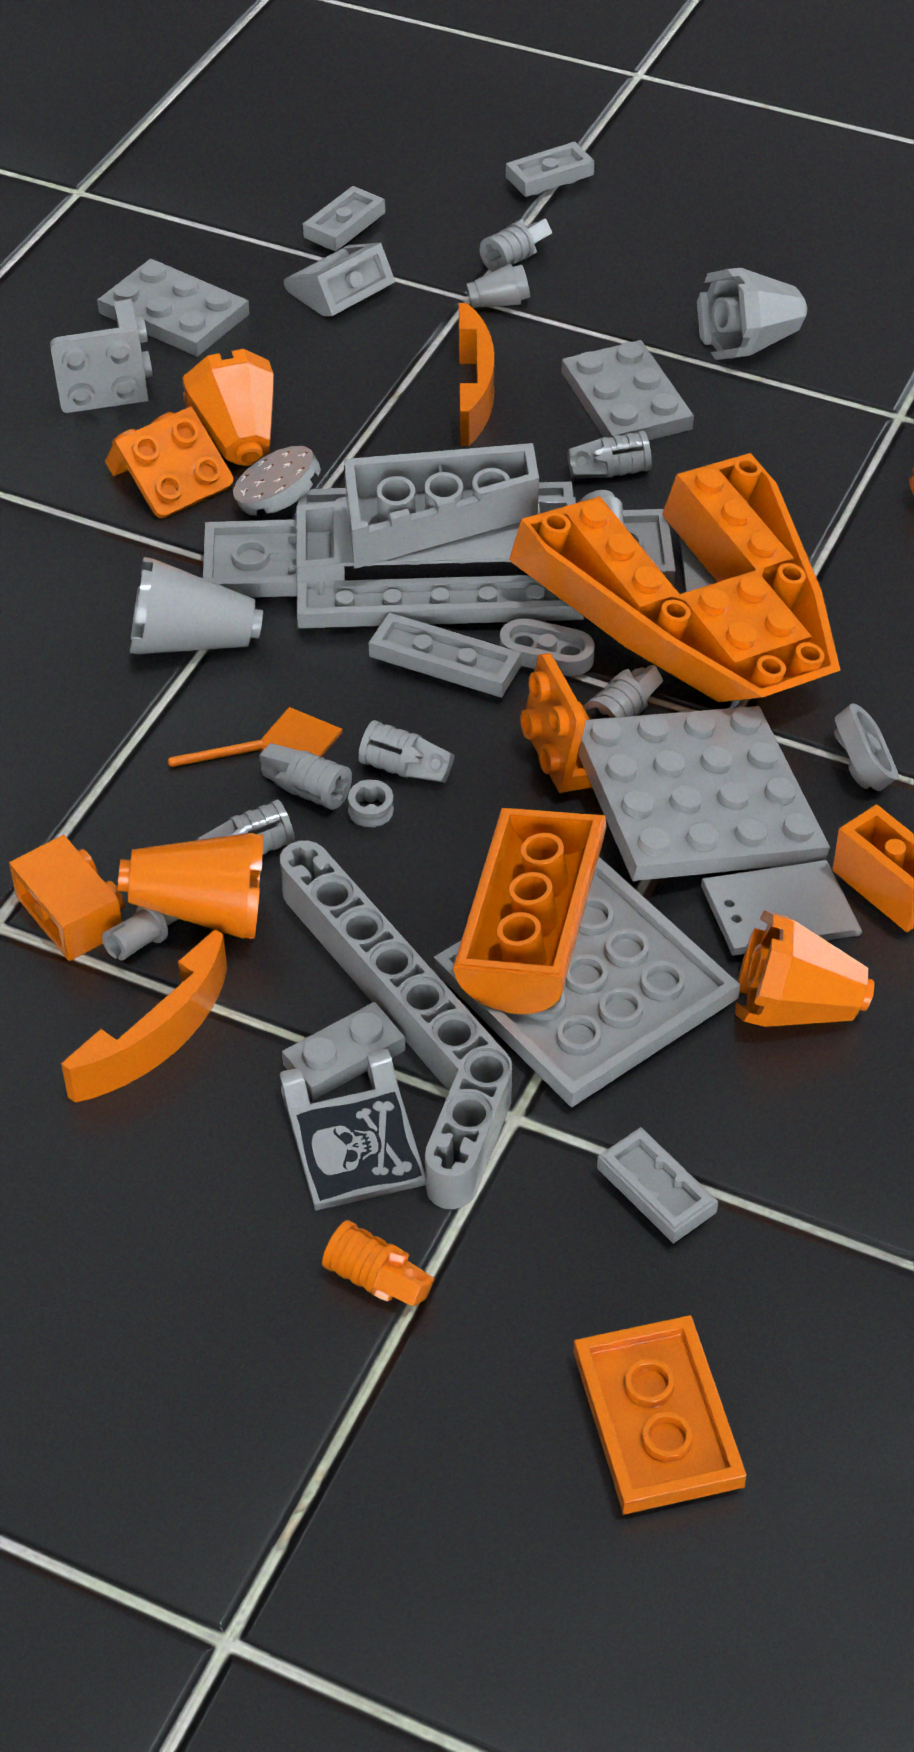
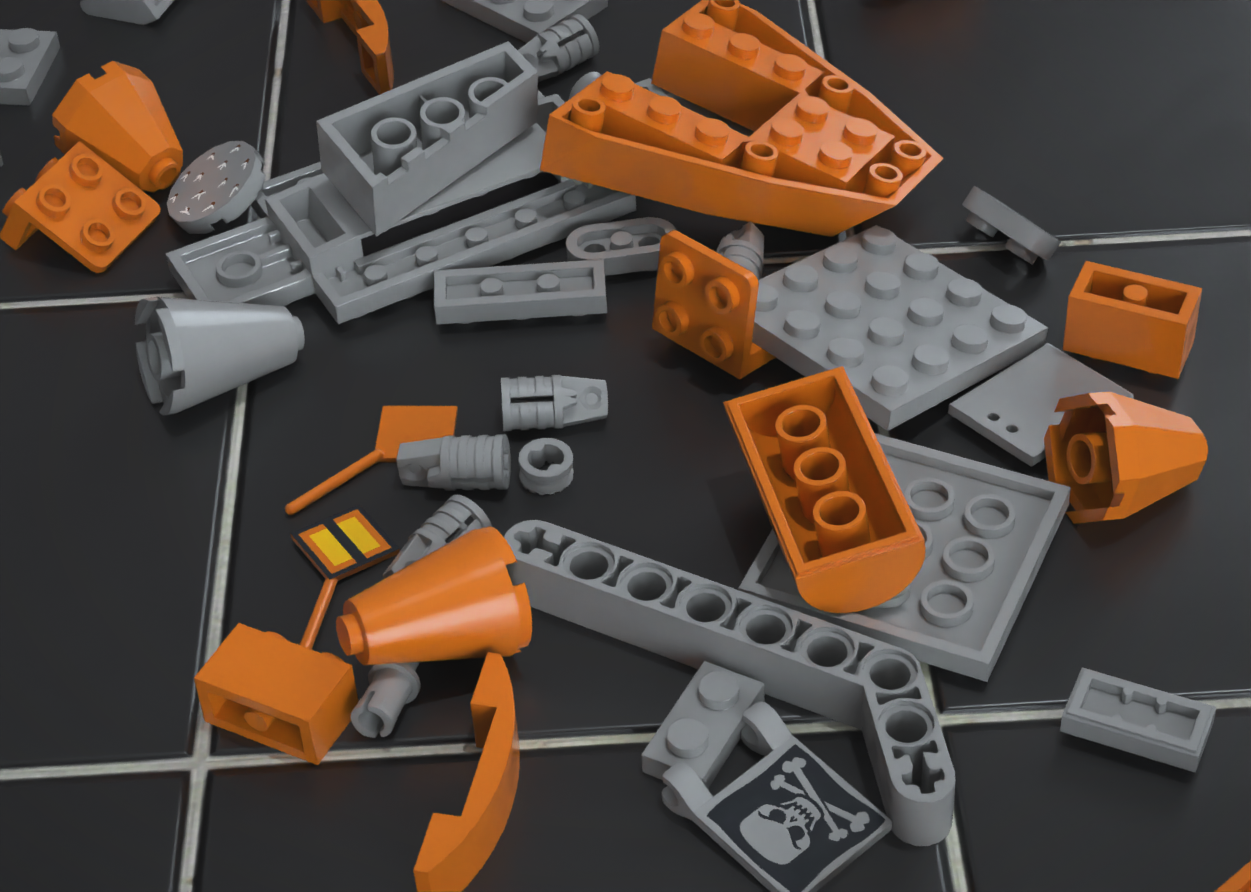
camera: 25 degrees left, 5 degrees down
(183, 806) = (339, 549): none -> piece

